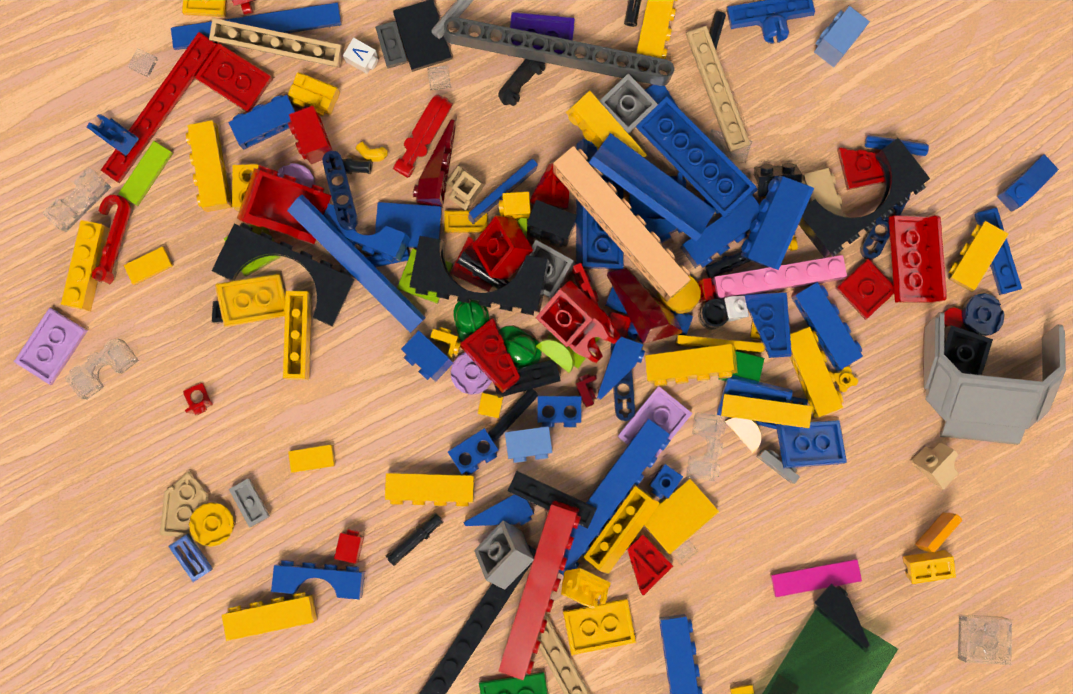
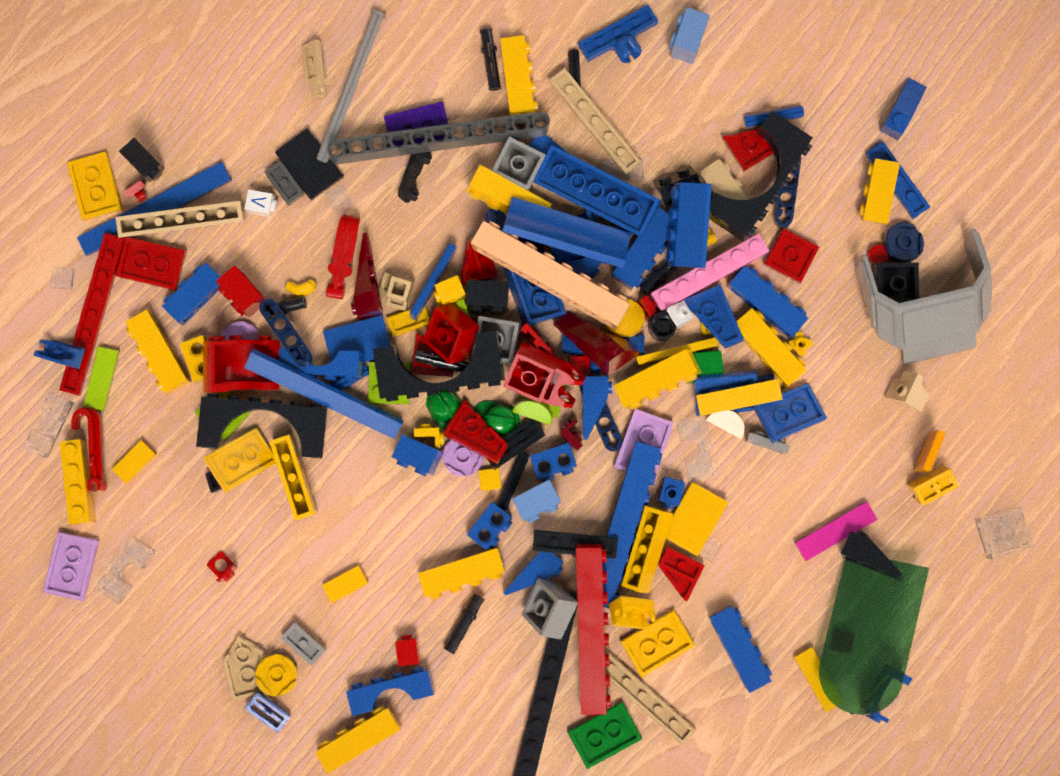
camera: 15 degrees left, 0 degrees up
(313, 92) = (229, 253): yellow brick -> none
(917, 259) = (827, 213): red bracket -> none

